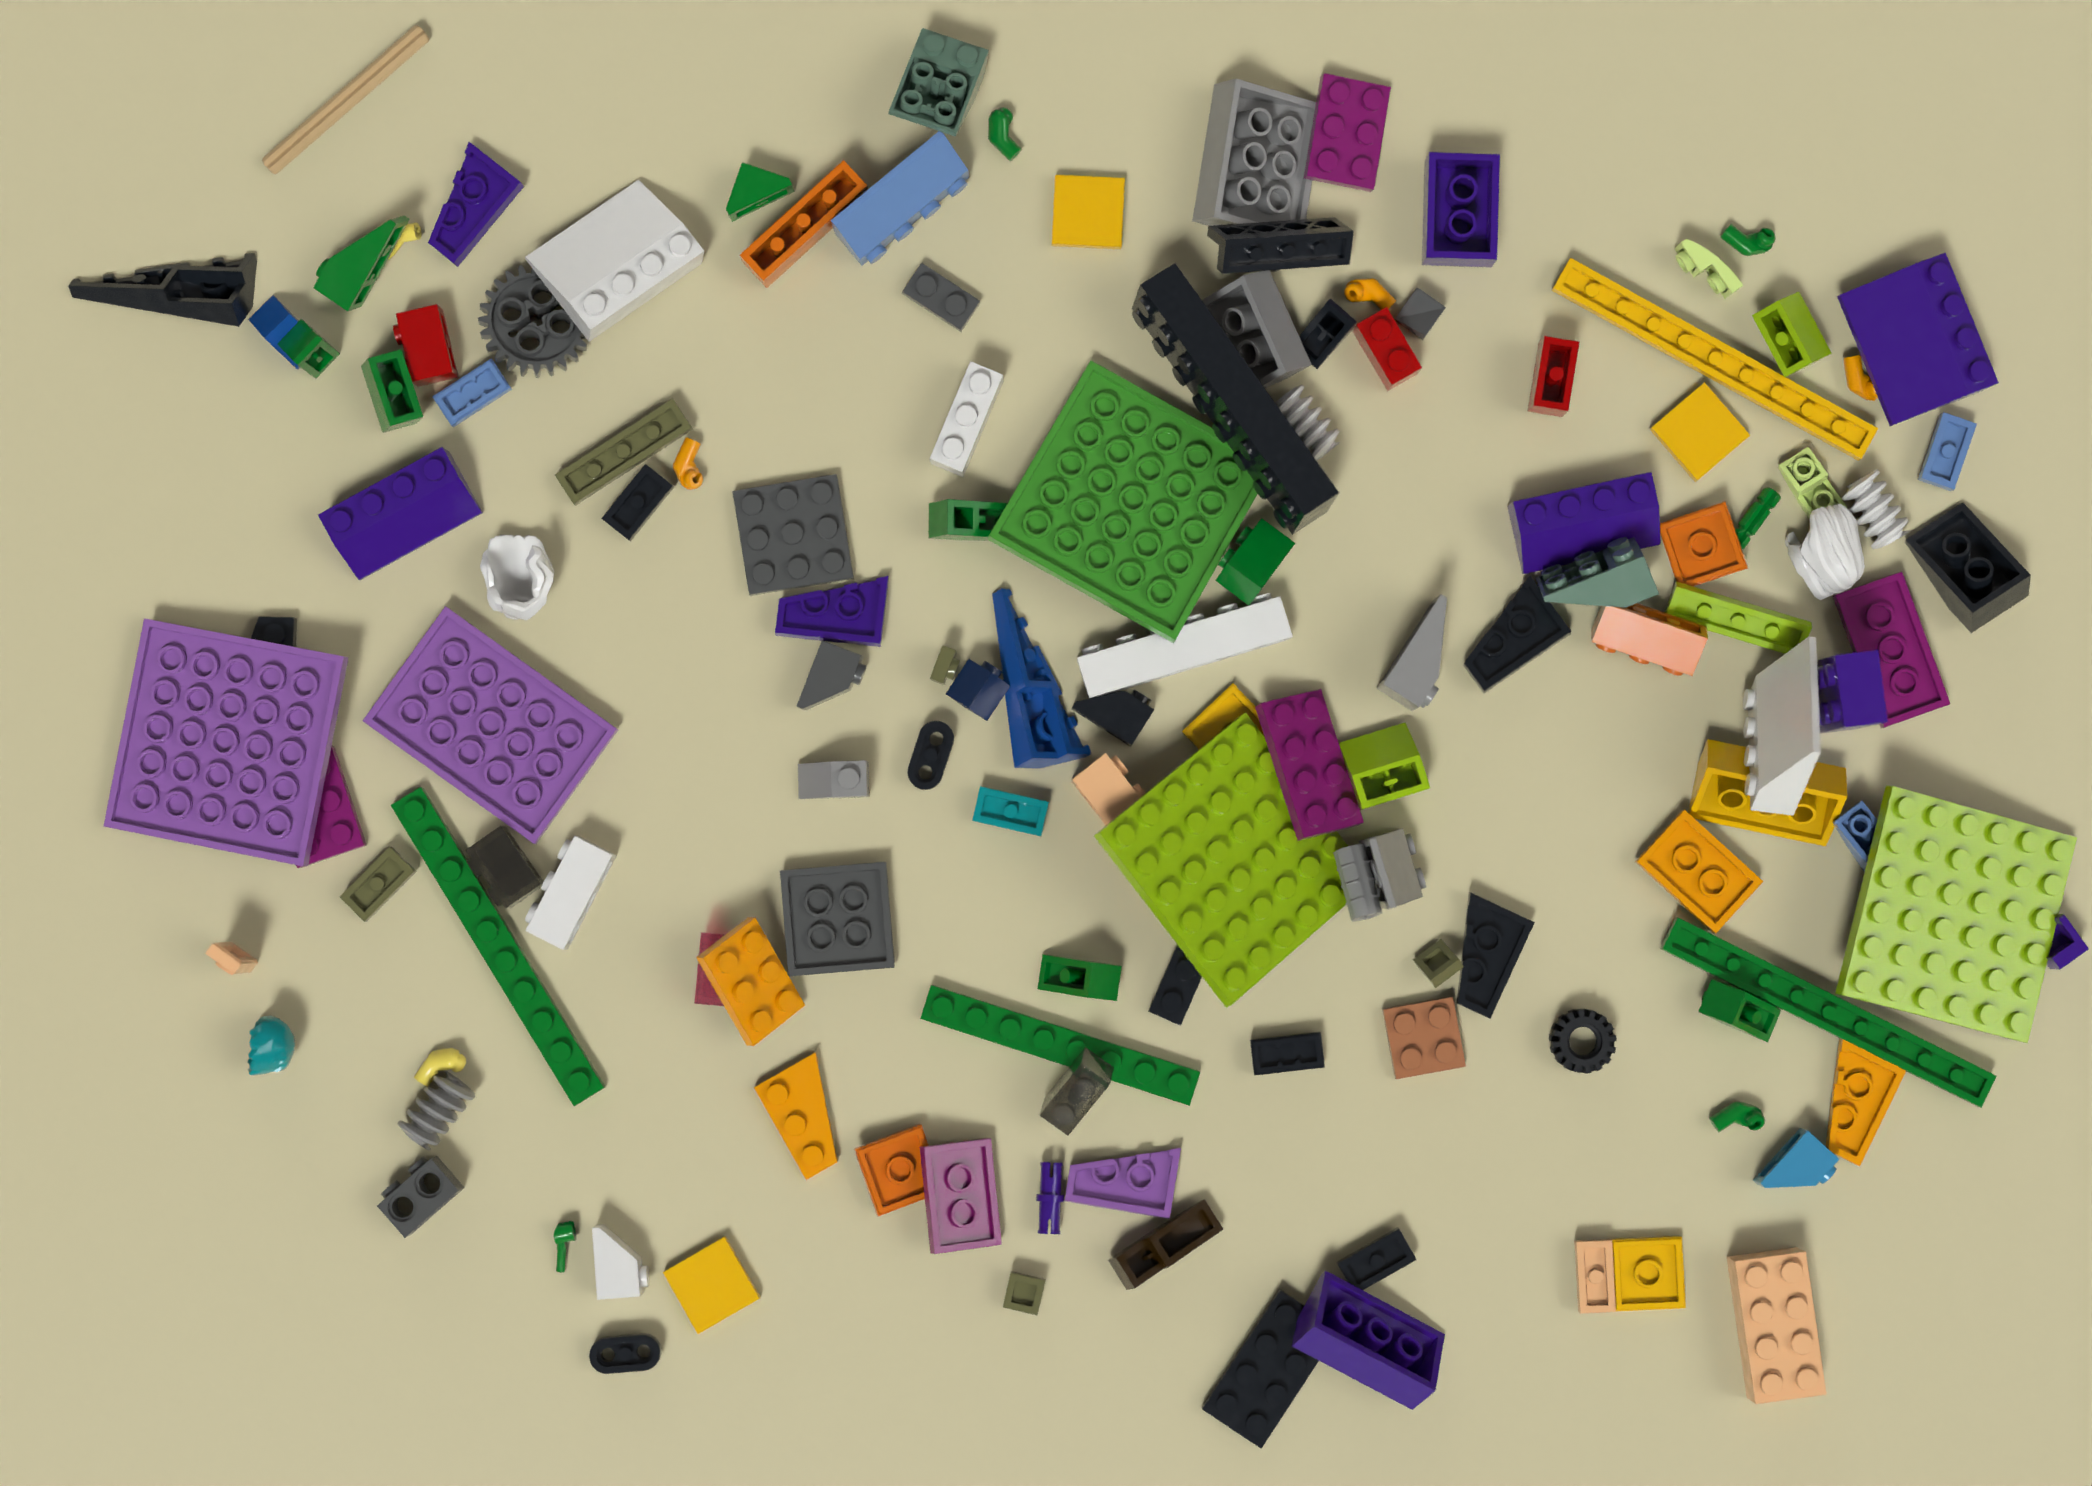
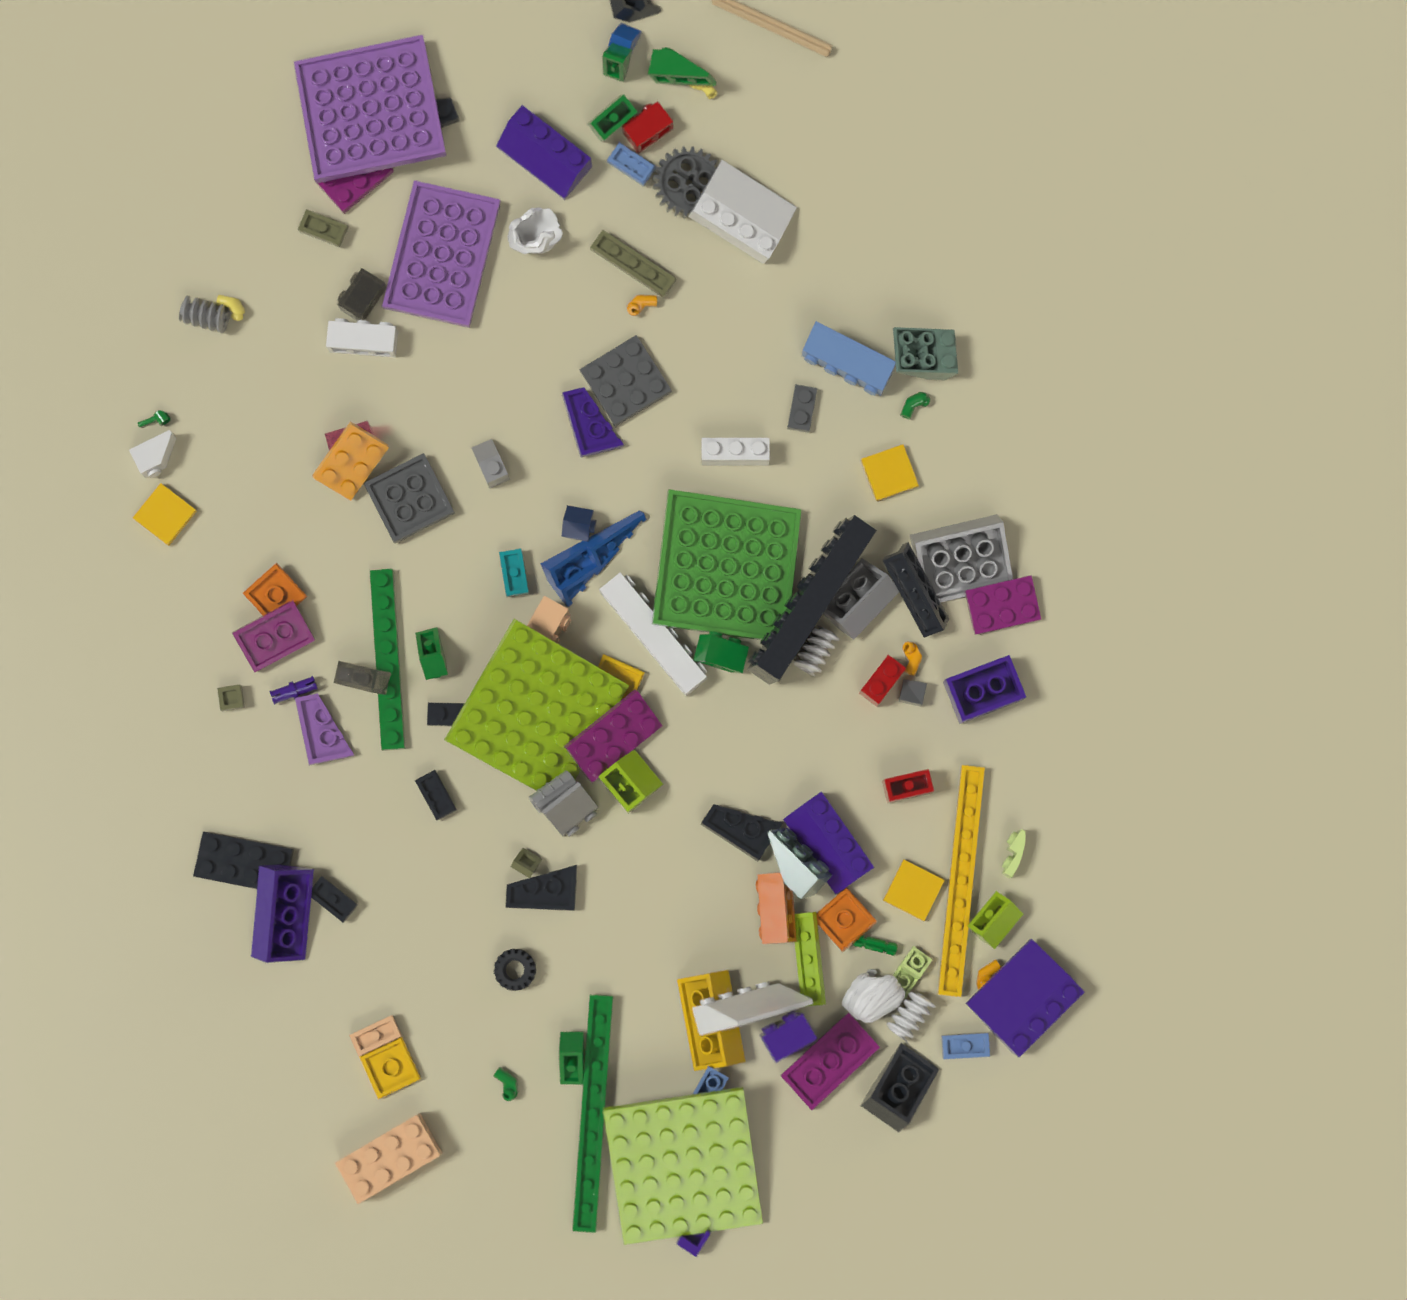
camera: 65 degrees right, 5 degrees down
(231, 958) = (245, 162): light nougat plate -> none
(270, 1045) = (203, 205): teal hair -> none
(424, 1201) = (148, 329): dark grey brick -> none
(476, 201) = (743, 121): dark purple wing -> none
(498, 946) = (313, 312): green plate -> none
(626, 1353) = (104, 482): black plate -> none
(637, 502) = (606, 283): black plate -> none
(756, 189) = (818, 274): green slope -> none
(800, 1114) = (286, 523): light orange wing -> none
(802, 224) = (807, 308): orange brick -> none
(831, 675) = (551, 435): dark grey slope -> none
(929, 755) = (528, 511): black plate -> none
(945, 666) = (584, 498): olive plate -> none
(963, 519) = (674, 472): green slope -> none
(1117, 713) = (597, 611): black slope -> none
(1165, 1245) = (292, 769): dark brown slope -> none
(1326, 332) = (876, 640): black slope -> none
(1417, 665) = (699, 774): light grey slope -> none
(1423, 1037) = (478, 873): nougat plate -> none
(1699, 871) = (646, 998): light orange plate -> none
(1751, 243) = (1040, 873): green arm -> none
(1799, 1163) = (492, 1132): dark azure slope -> none
(1859, 1100) = (546, 1154): light orange wing -> none

